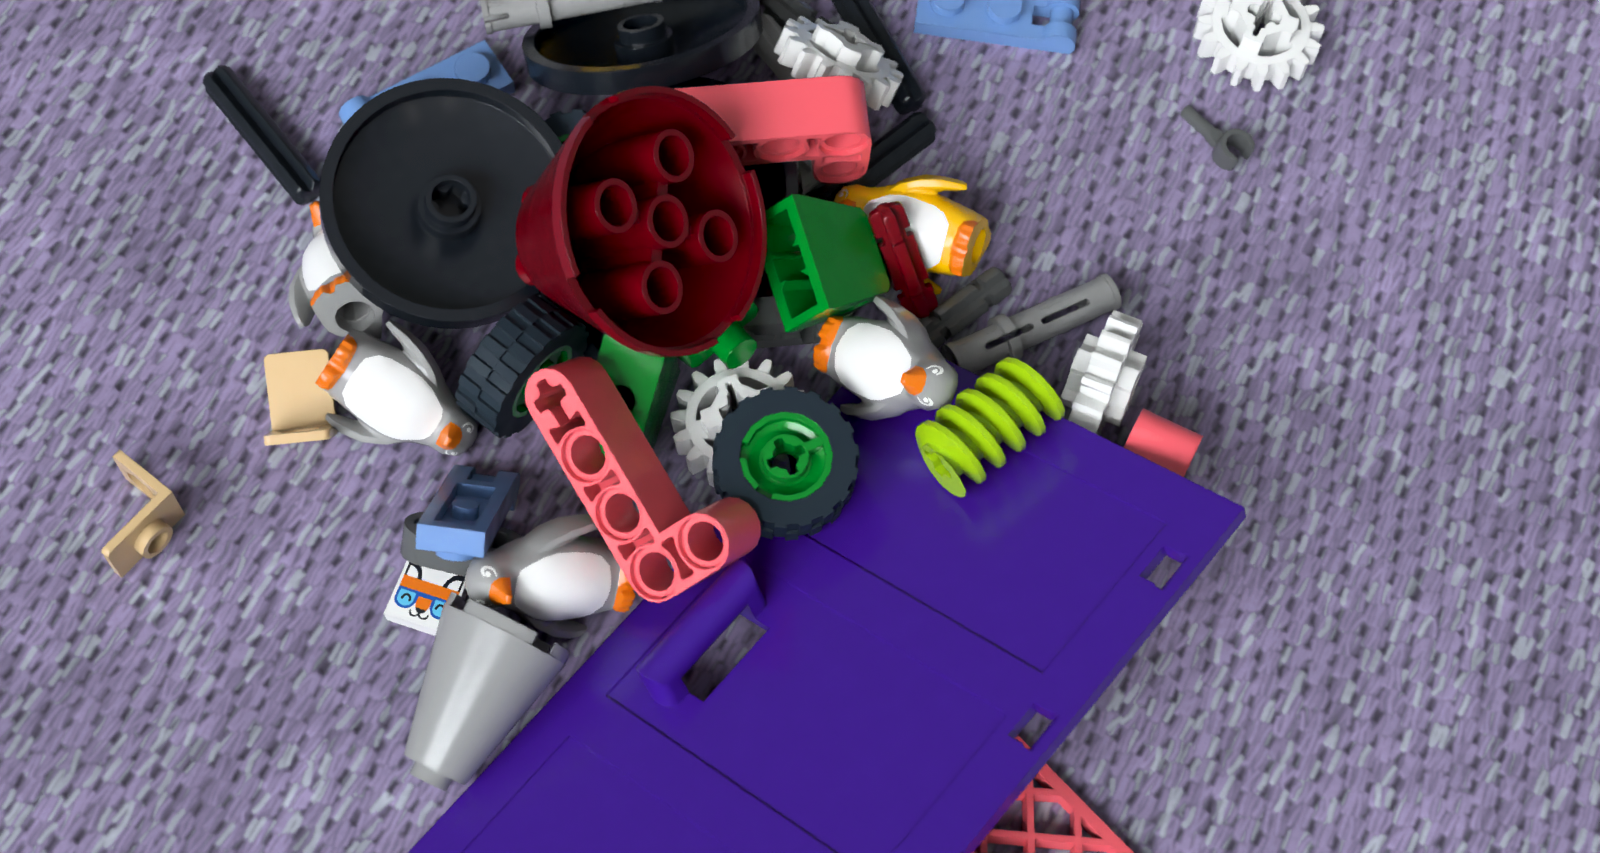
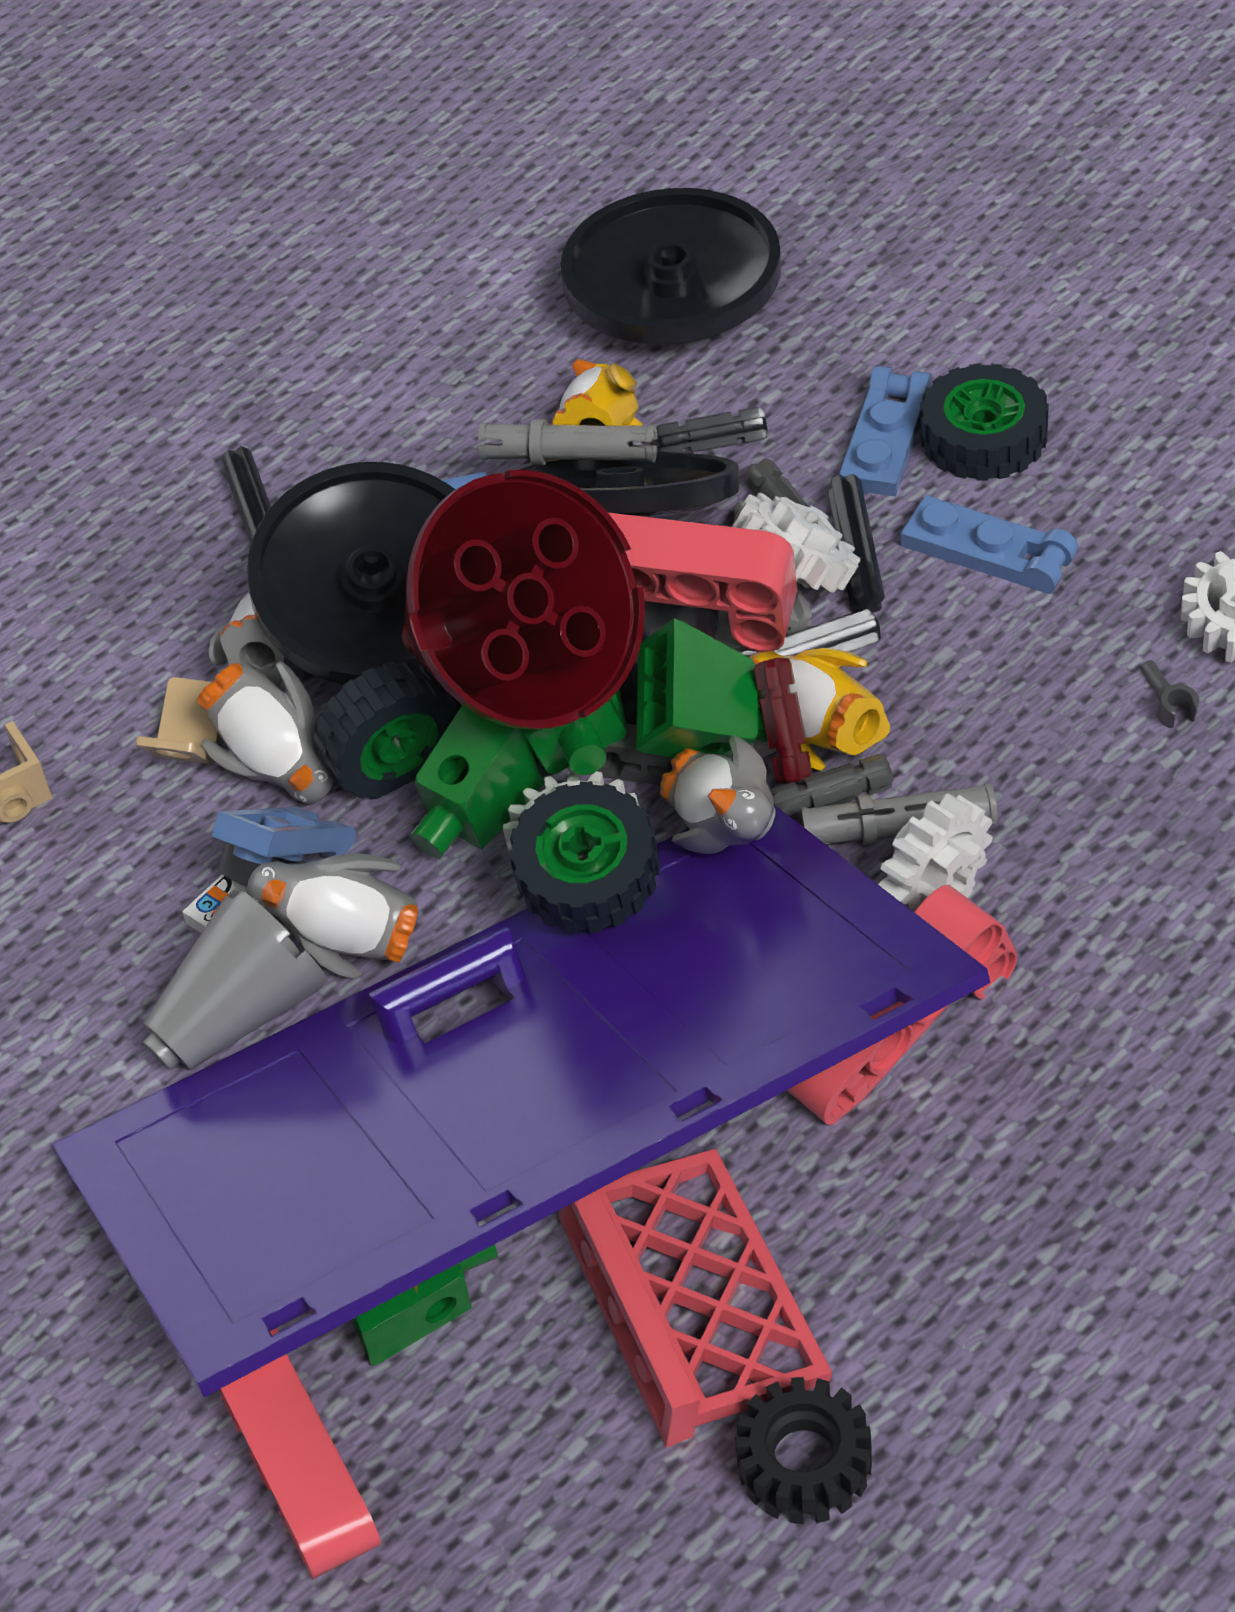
camera: 30 degrees right, 15 degrees down
(576, 410) = (435, 881): coral beam -> none
(984, 420) = (783, 856): lime piece -> none

